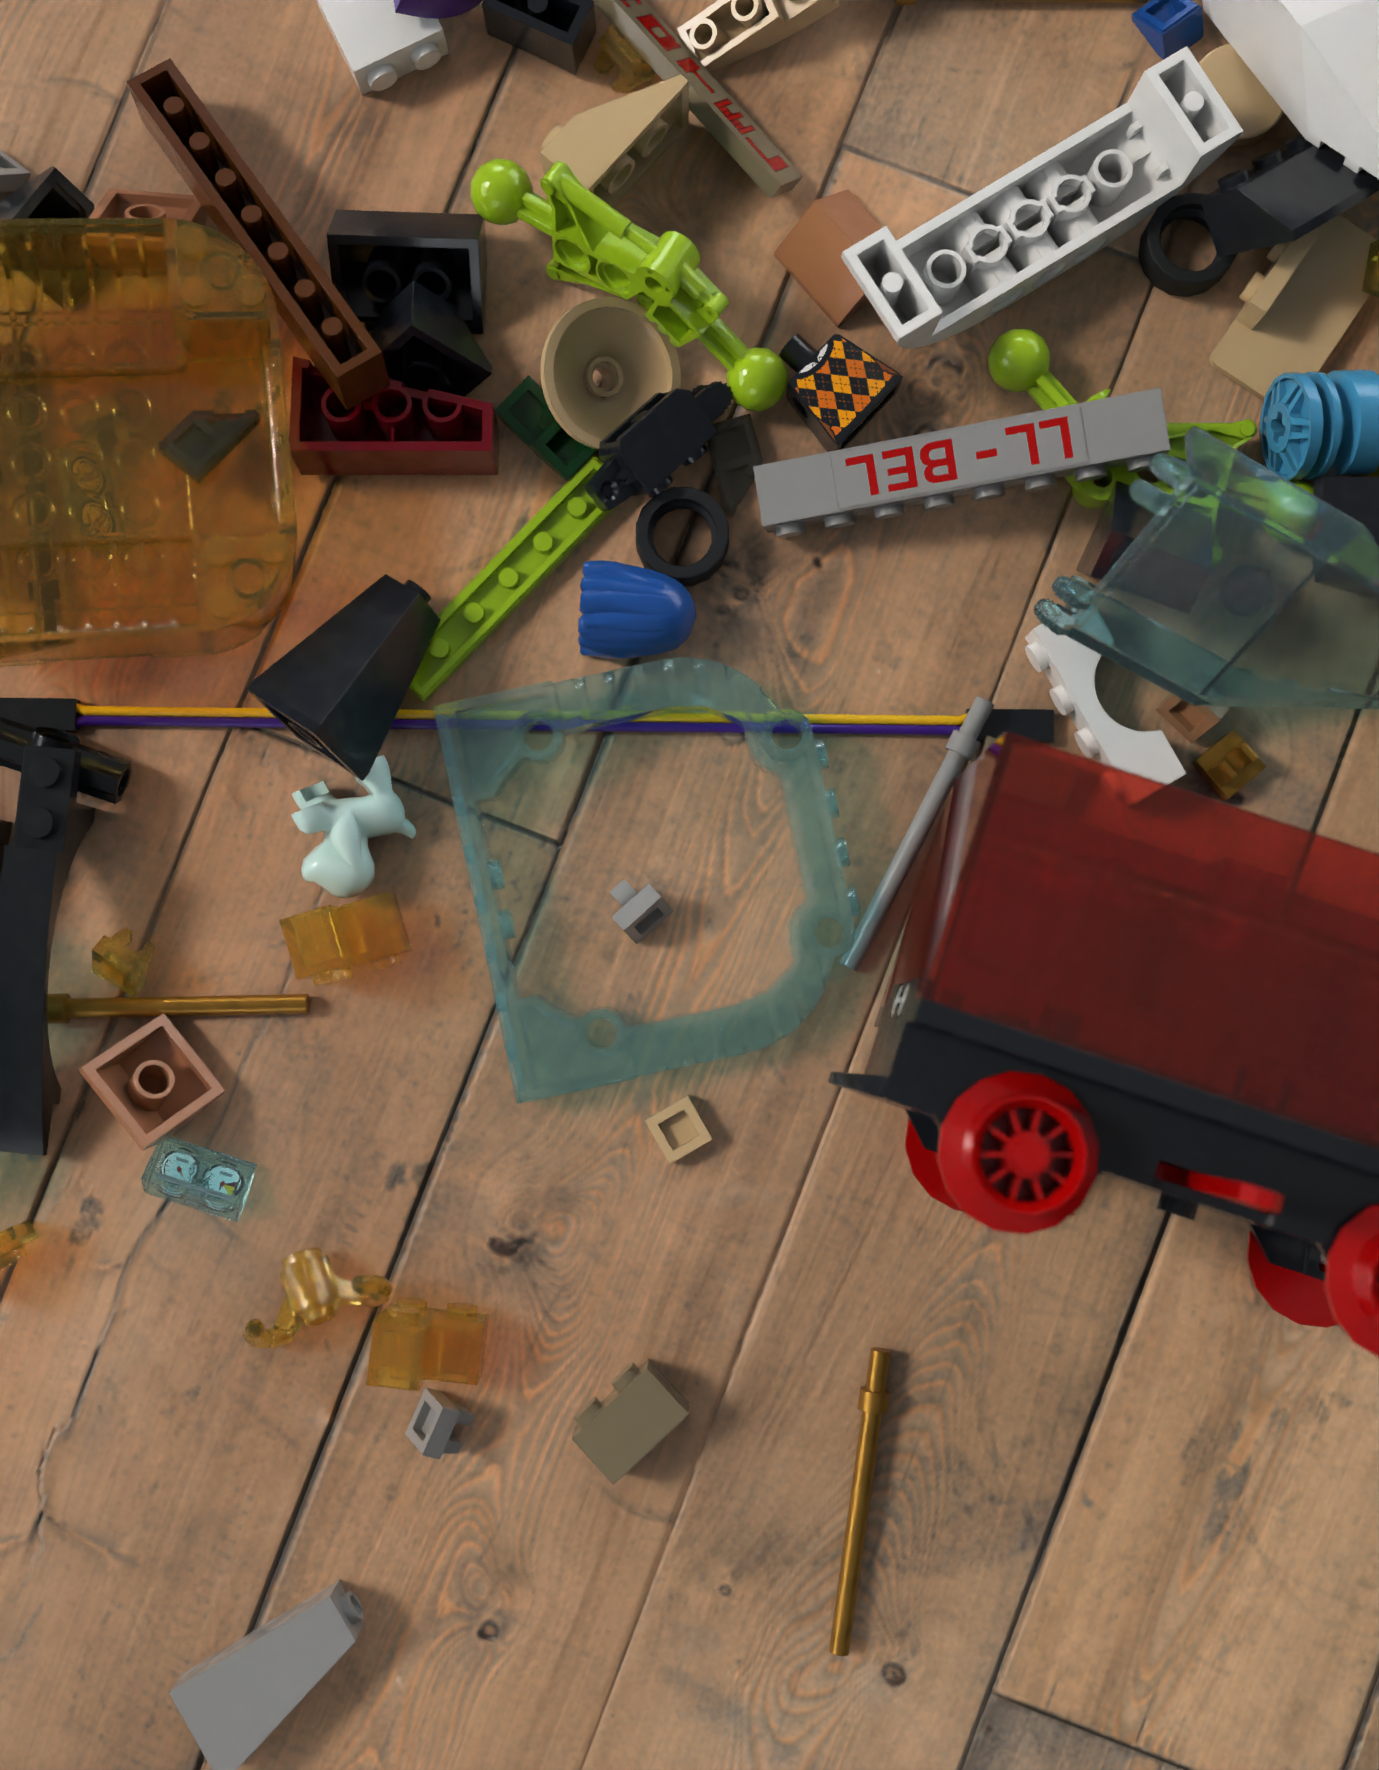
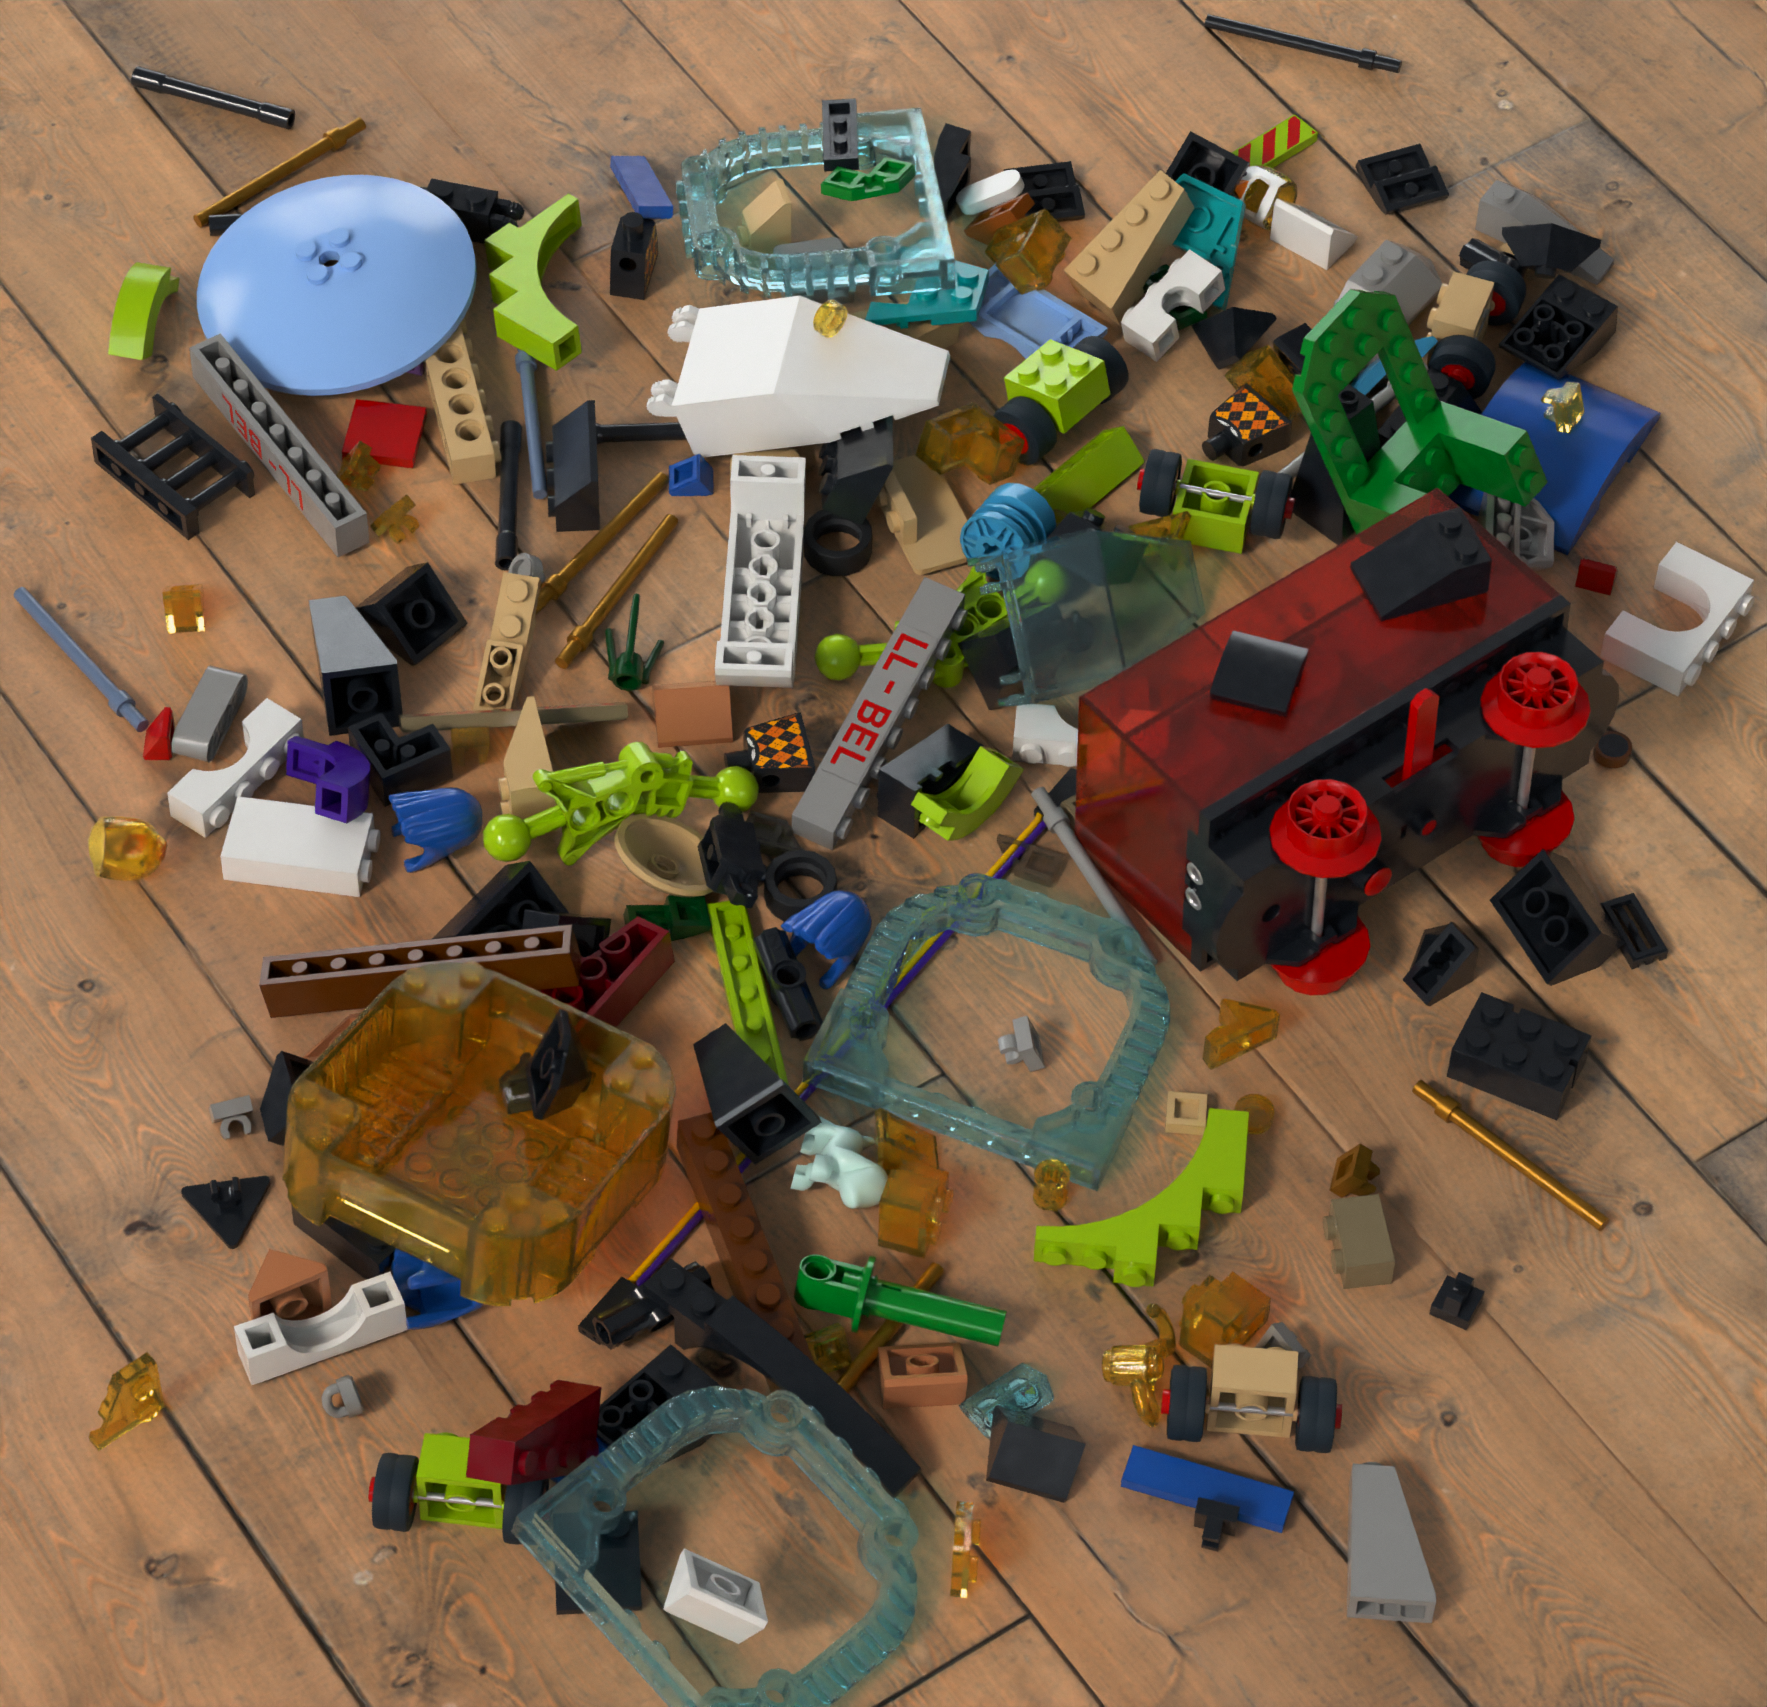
camera: 55 degrees left, 35 degrees down
(142, 1252) = (1033, 1454): none -> black slope
(159, 817) = (736, 1228): none -> reddish brown brick
(185, 1488) = (1215, 1519): none -> black tile
(214, 473) = (557, 1069): none -> black slope
(220, 1025) = (855, 1292): none -> green piece
(228, 1448) = (1186, 1481): none -> blue tile
(344, 1443) = (1252, 1395): none -> brick
(422, 874) = (901, 1141): none -> clear yellow slope
(462, 1186) = (1170, 1219): none -> lime arch
(465, 1063) = (1051, 1182): none -> clear yellow bush
(479, 97) = (437, 821): none -> blue hair
(525, 641) = (794, 999): none -> black piece
(631, 1558) = (1457, 1301): none -> black tile
(714, 1356) = (1352, 1171): none -> pearl gold tile
(726, 1200) = (1260, 1112): none -> clear yellow tile
(826, 1127) = (1242, 1030): none -> clear yellow slope
(846, 146) = (629, 670): none -> dark green plant
(856, 67) = (582, 635): none -> pearl gold bar
(899, 758) = (1035, 864): none -> clear smoke tile
(921, 571) = (926, 768): none -> black wedge
(921, 633) = (971, 798): none -> lime arch
(990, 1441) = (1518, 1056): none -> black piece
(1060, 1273) = (1442, 963): none -> black slope
(1189, 934) = (1258, 673): none -> black slope
(1210, 1368) = (1556, 918): none -> black slope
(1244, 1438) = (1643, 954): none -> black tile

